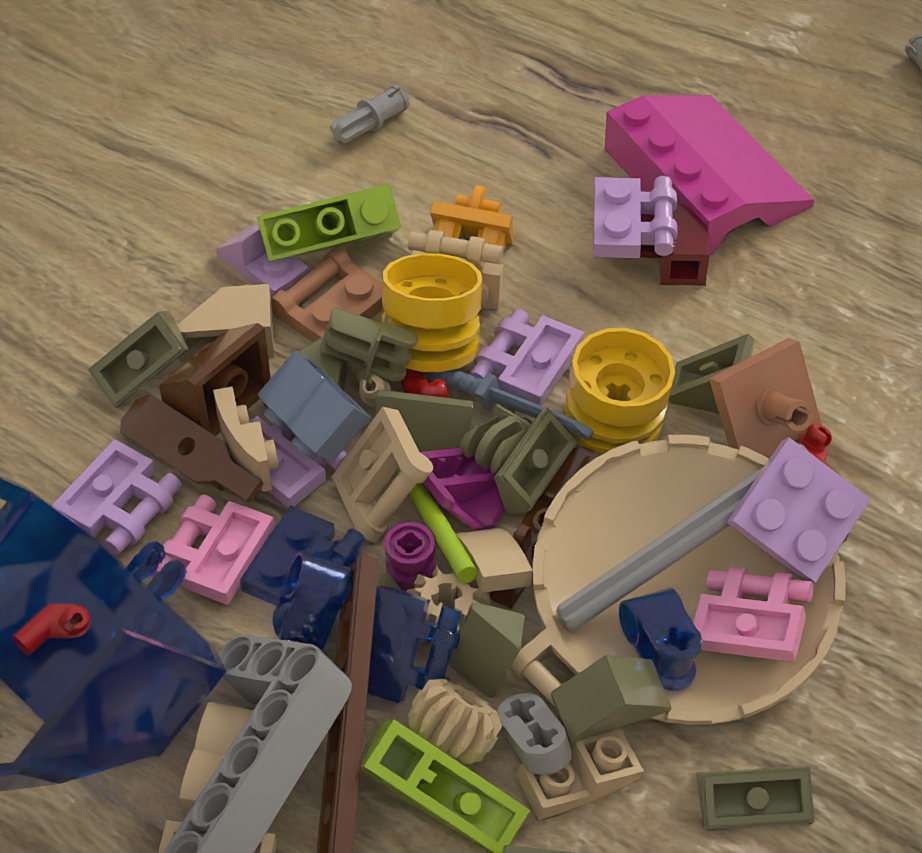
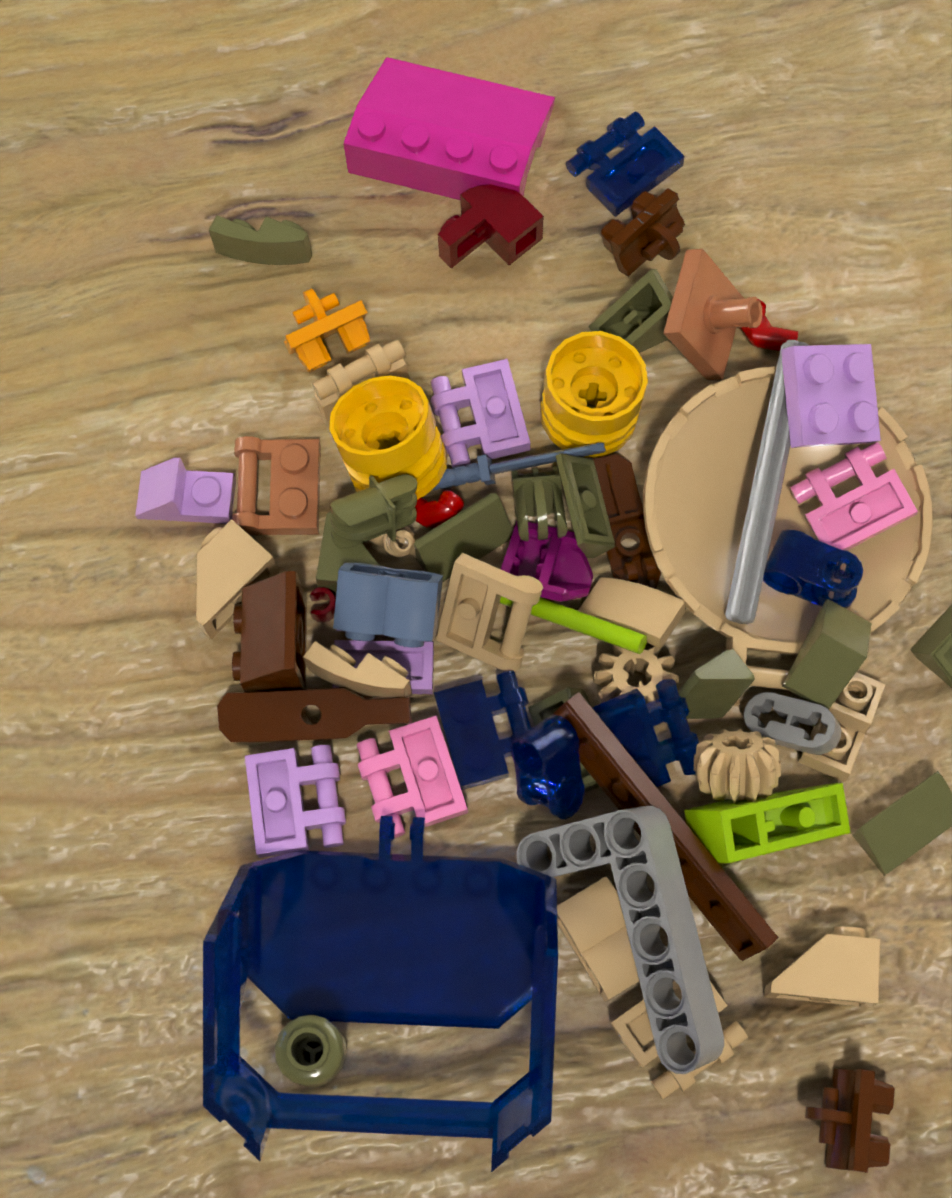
camera: 40 degrees left, 20 degrees up
(52, 623) = (363, 946): red arm -> none
(139, 357) = (190, 669): olive slope -> none
(329, 223) = (223, 420): lime slope -> none
(369, 114) = (135, 290): light grey axle -> none
(409, 552) = (567, 668): magenta wheel -> none
(488, 145) = (271, 245): none -> olive slope
(618, 217) = (447, 236): lavender plate -> none
(800, 321) = (649, 234): none -> reddish brown hips
(822, 275) = (635, 169): none -> clear blue plate

